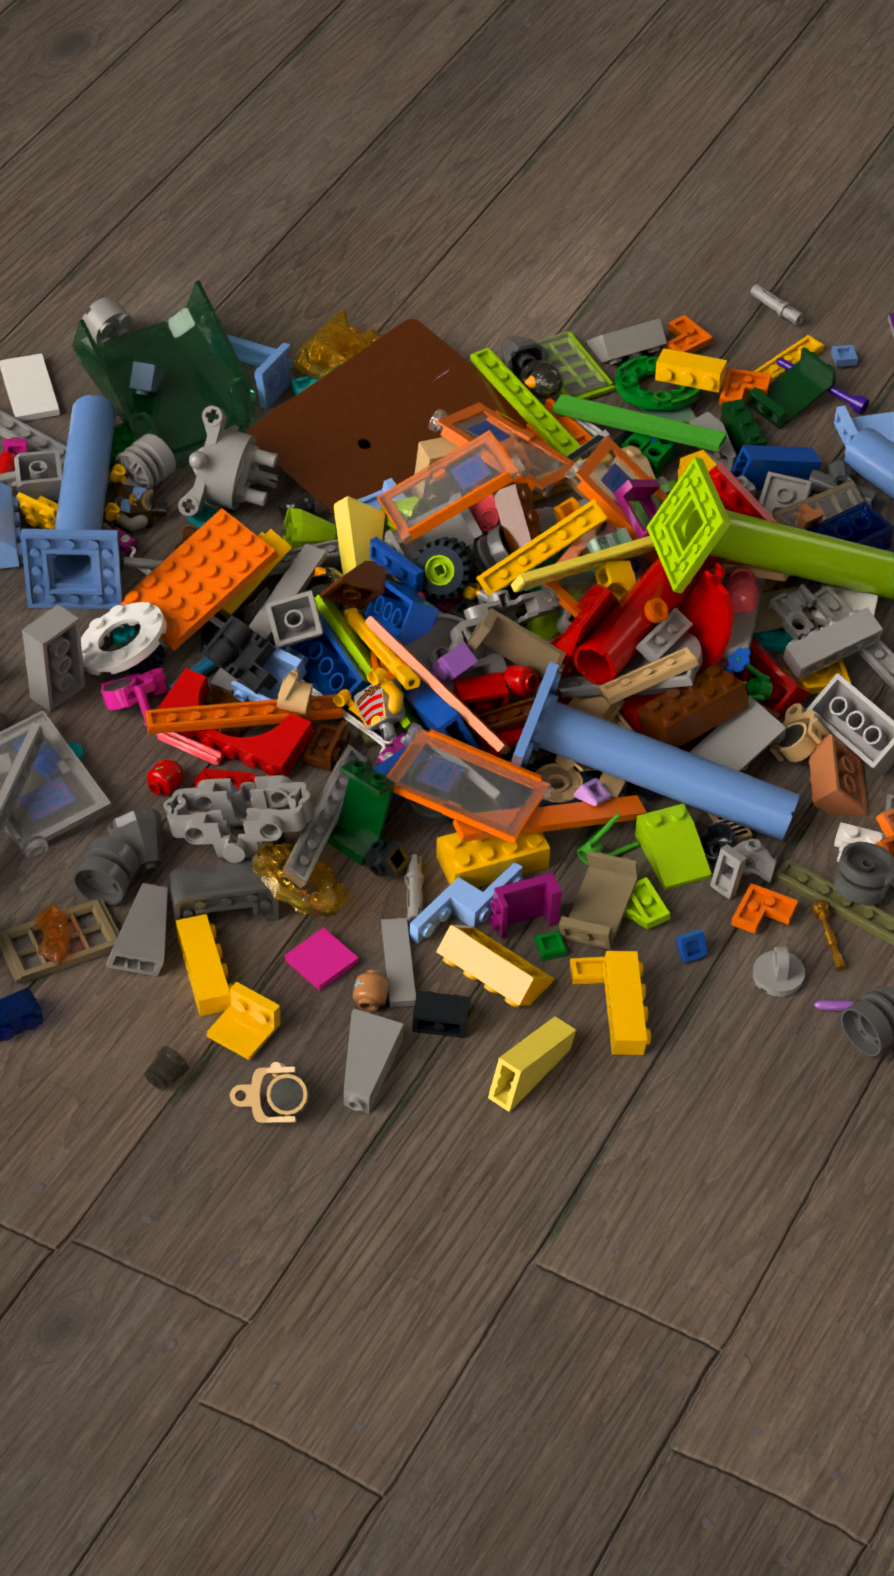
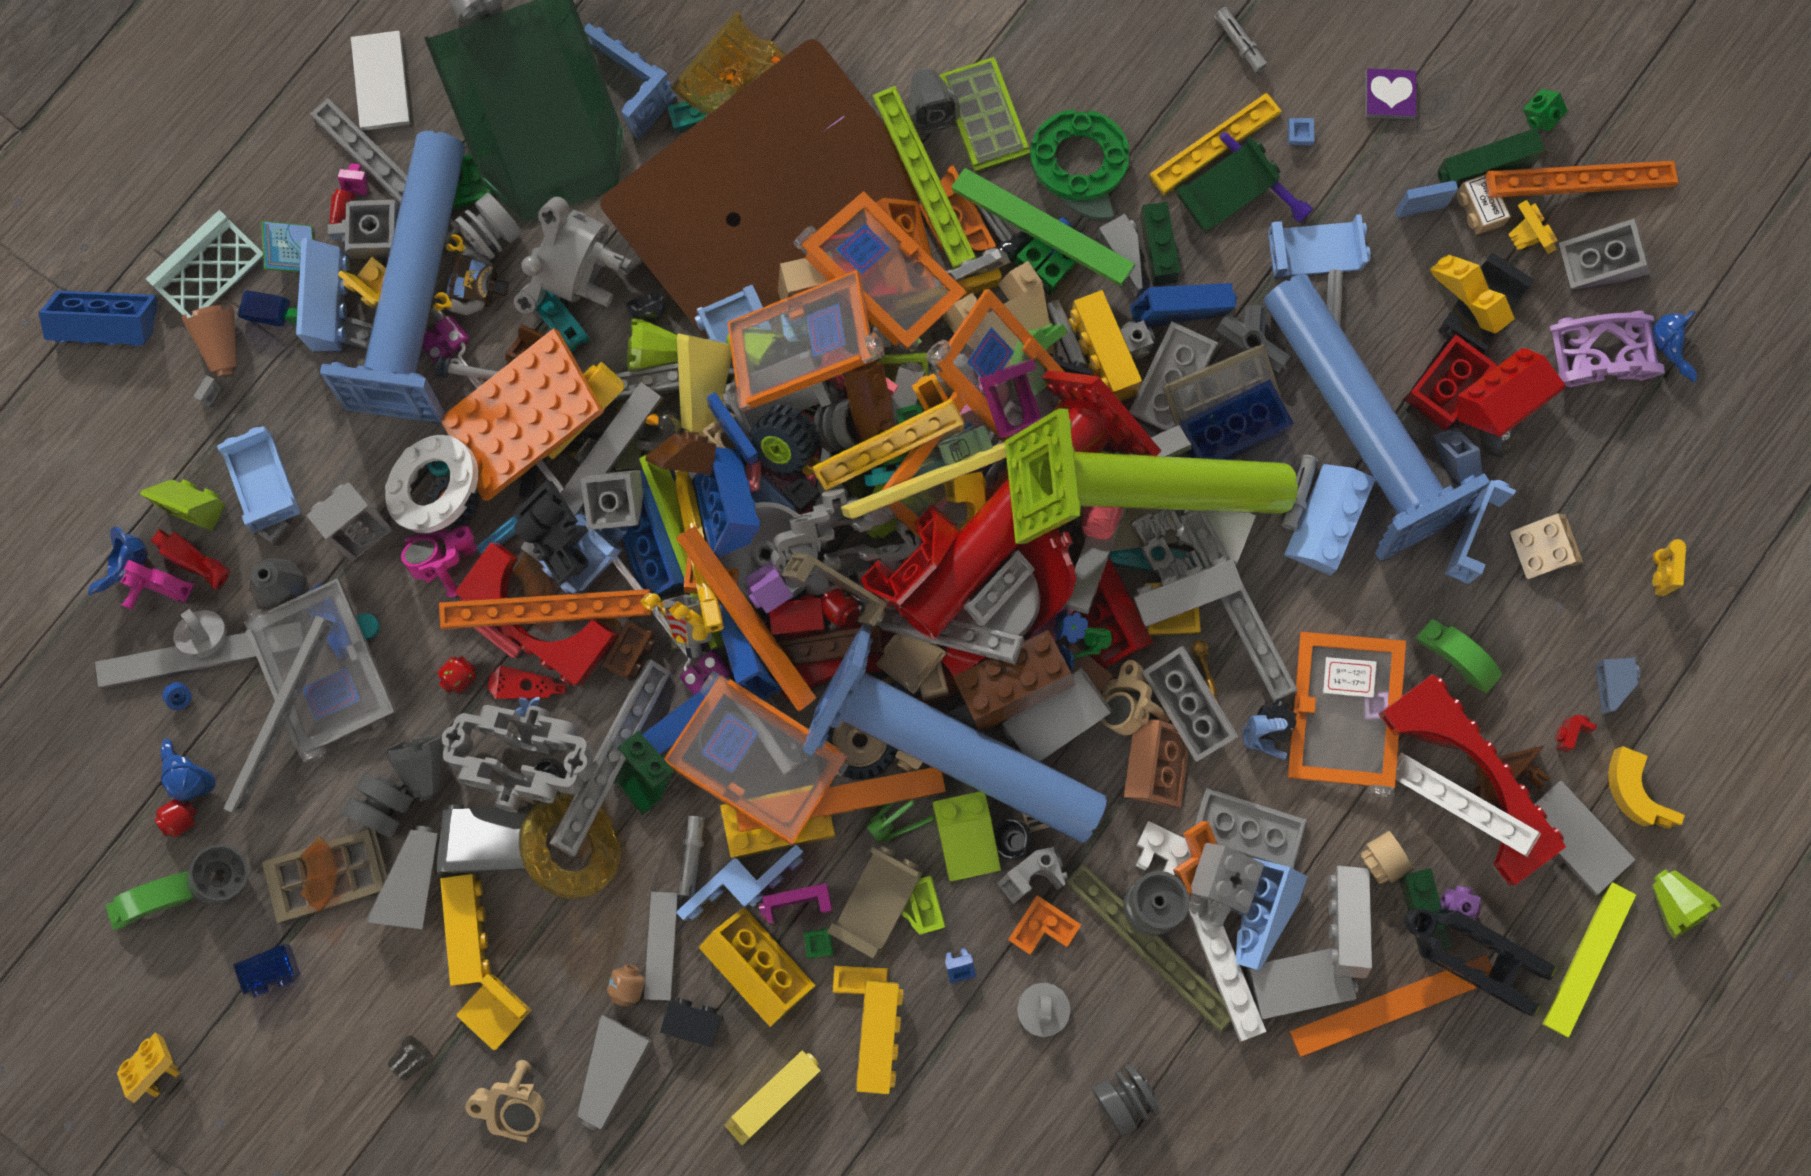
camera: 10 degrees right, 30 degrees up
(145, 378) = (507, 86): sand blue slope -> none
(294, 694) = (597, 601): tan piece -> none
(321, 959) = (584, 932): dark pink tile -> none
(386, 858) = (666, 818): black brick -> none
(545, 379) = (951, 143): clear smoke piece -> none
(592, 792) = (891, 768): lavender slope -> none
(628, 341) = (1057, 83): light grey slope -> none
(648, 675) = (971, 643): tan tile -> none
(656, 610) = (993, 563): orange tile -> none
(689, 336) = (1132, 83): orange plate -> none
(691, 370) = (1116, 152): yellow brick -> none
(741, 382) = (1172, 169): orange plate -> none
(808, 517) = (1199, 403): nougat tile -> none
(821, 912) = (1103, 932): pearl gold piece -> none
(833, 1005) = (1102, 1059): medium lavender piece -> none

